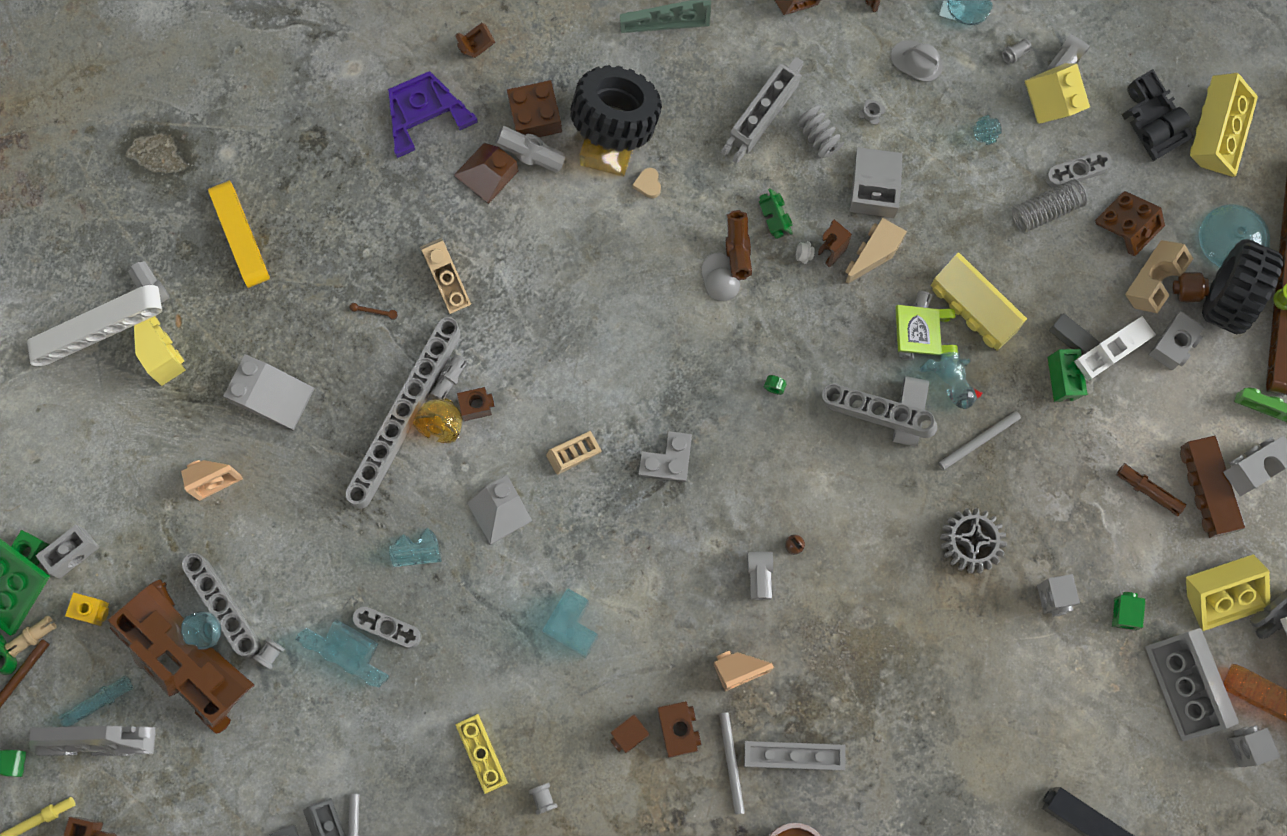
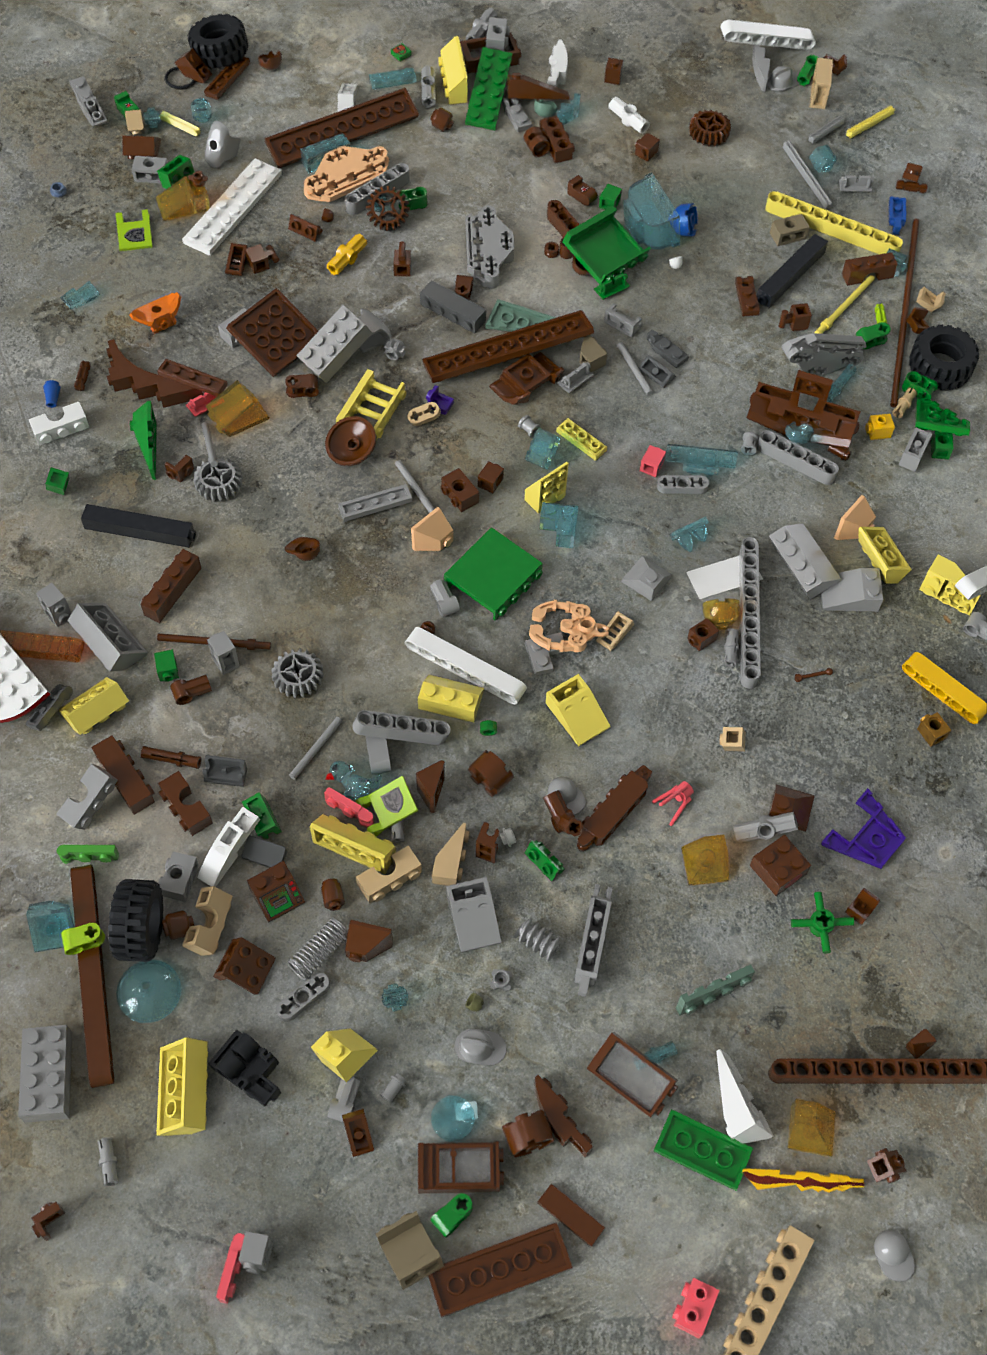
camera: 155 degrees right, 15 degrees down
(203, 416) = (883, 554): none -> light yellow slope
(281, 183) = (930, 735): none -> pearl gold brick
(301, 450) = (804, 559): none -> light grey slope
(407, 675) = (652, 461): none -> coral brick
(413, 480) = (716, 577): none -> white sticker
(445, 275) = (780, 717): tan slope -> none
(511, 260) = (733, 739): none -> tan brick
(530, 37) = (817, 927): none -> green bar
(544, 746) = (542, 448): none -> clear light blue brick
(567, 678) = (548, 489): none -> light yellow slope
(595, 227) = (680, 793): none -> coral plant
(610, 126) = (743, 879): black tyre -> none
(623, 472) = (581, 626): none -> light nougat piece
(648, 183) = (658, 846): tan tile -> none
(666, 364) = (577, 710): none -> light yellow slope
(675, 237) = (614, 809): none -> reddish brown hinge
(686, 585) = (494, 572): none -> green panel
(771, 474) = (466, 665): none -> white beam
(798, 322) = (490, 772): none -> reddish brown brick
(802, 441) = (450, 698): none -> light yellow slope
(871, 333) = (430, 784): none -> reddish brown slope
(908, 99) = (474, 1002): none -> olive hinge
(912, 719) = (304, 548): none -> reddish brown cap
(927, 258) = (375, 885): none -> tan arch
(967, 349) = (349, 807): none -> coral hinge
(996, 192) = (367, 941): none -> reddish brown slope
(1016, 260) = (332, 894): none -> reddish brown brick
(1017, 606) = (250, 644): none -> reddish brown bar
(1064, 23) = (358, 1132): none -> reddish brown slope
(1076, 287) = (275, 891): none -> reddish brown slope
(1092, 448) = (225, 770): none -> dark grey hinge
(1096, 725) = (171, 585): none -> reddish brown brick
(1113, 569) = (184, 691): none -> reddish brown piece
(1147, 404) = (193, 817): none -> reddish brown arch

